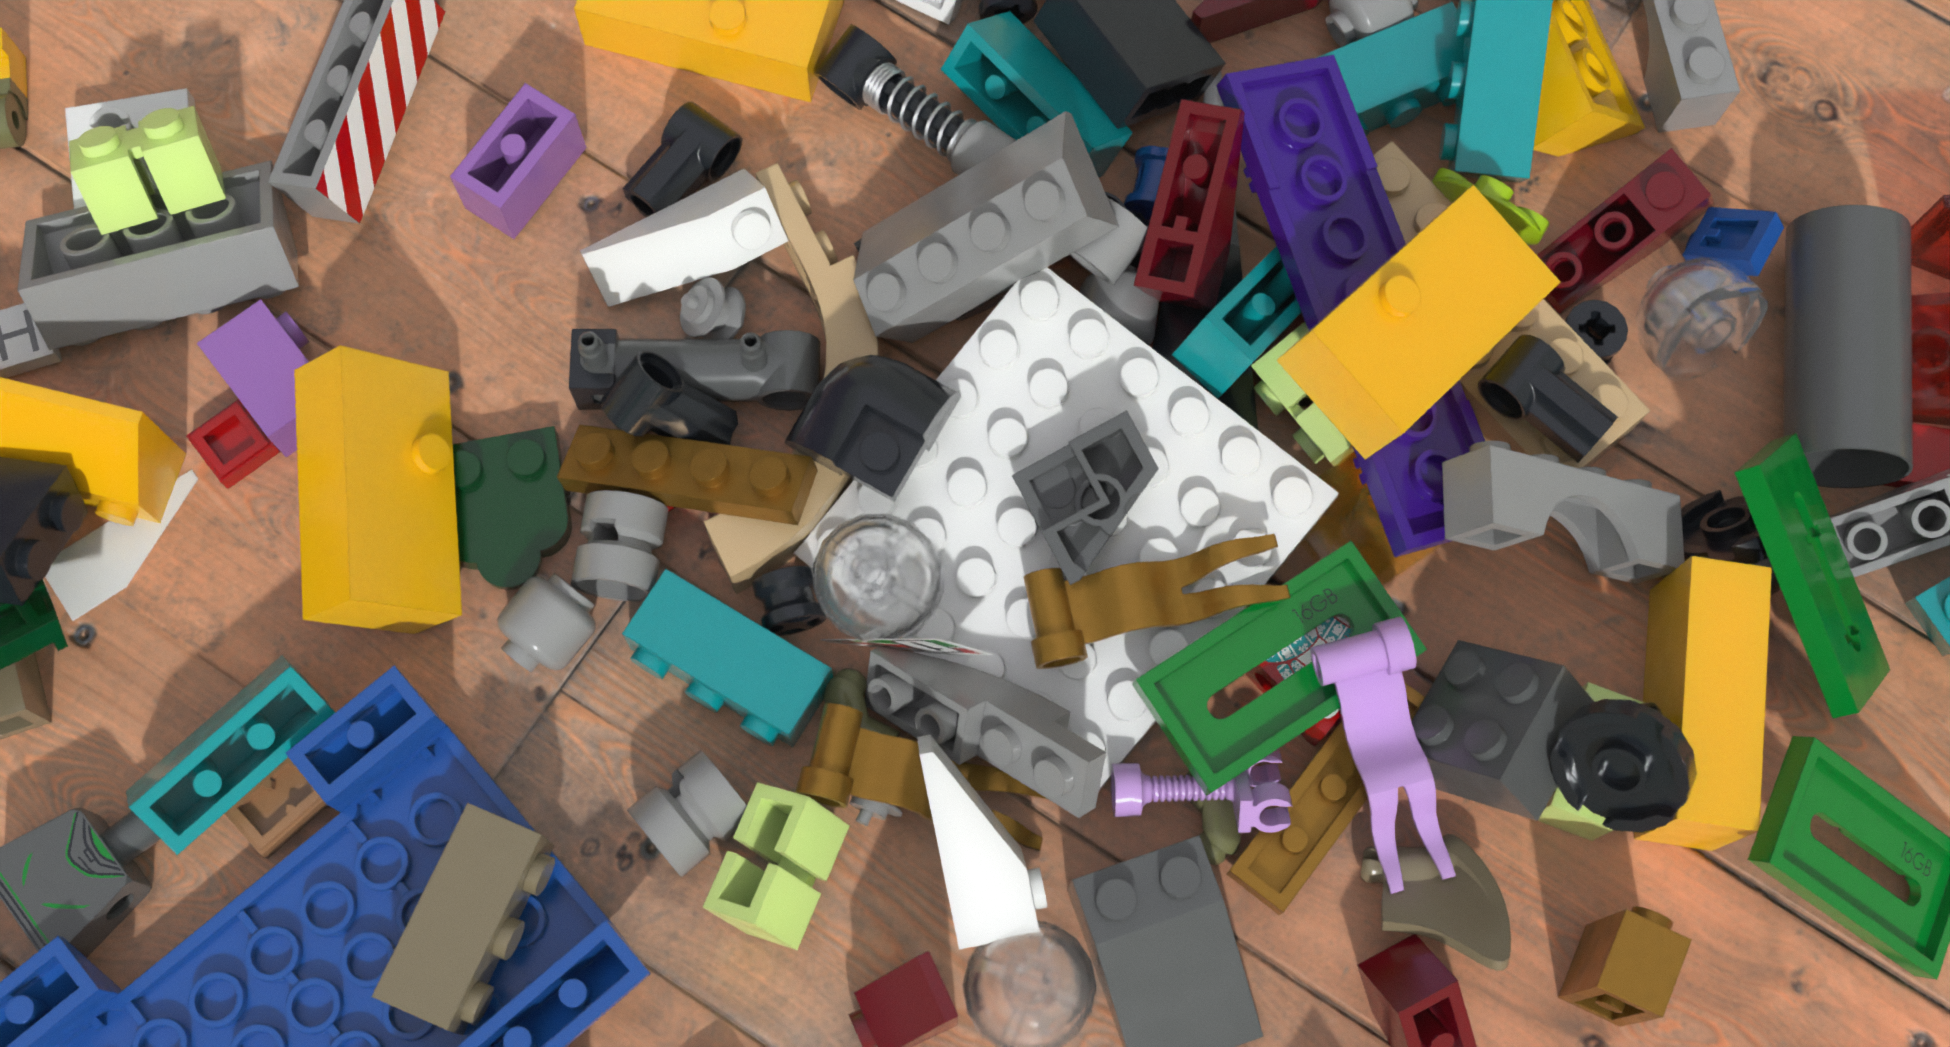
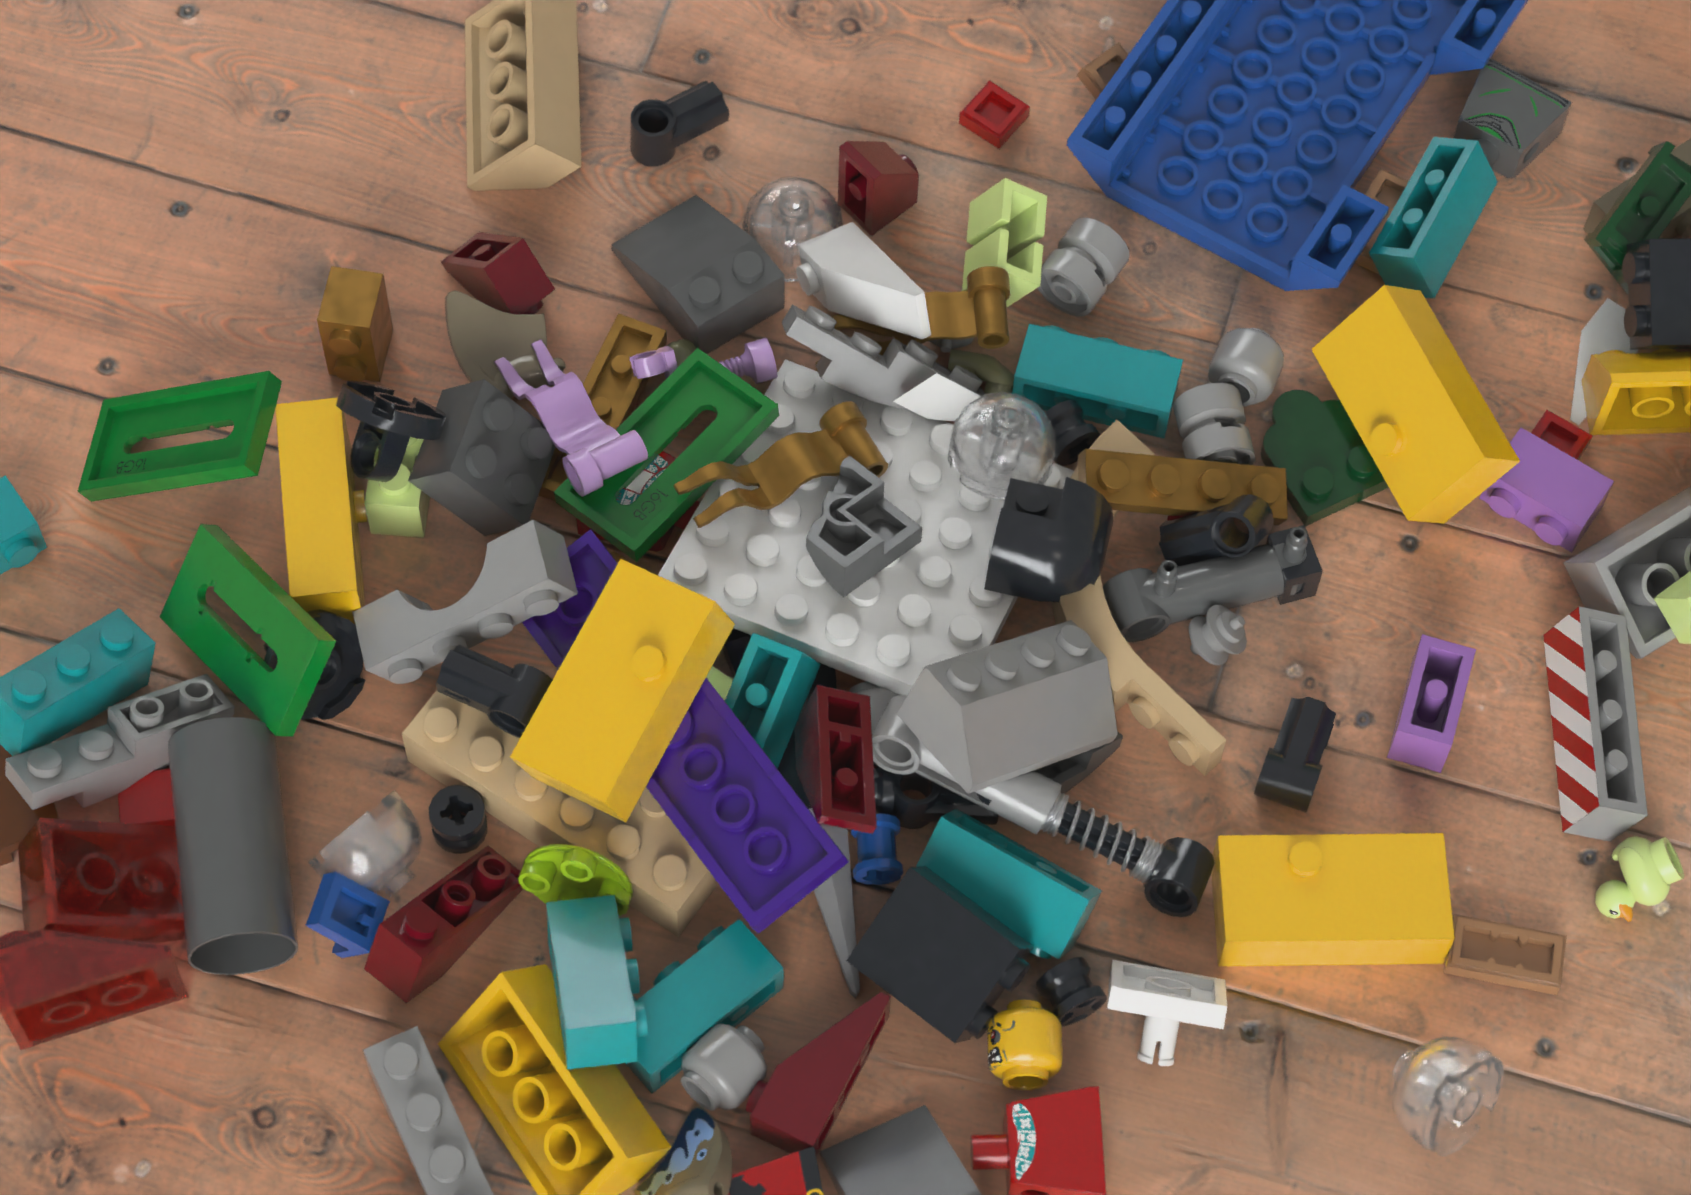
camera: 165 degrees right, 10 degrees down
(466, 921) = (1209, 147): dark tan brick -> none
(687, 240) = (1253, 687): white slope -> none

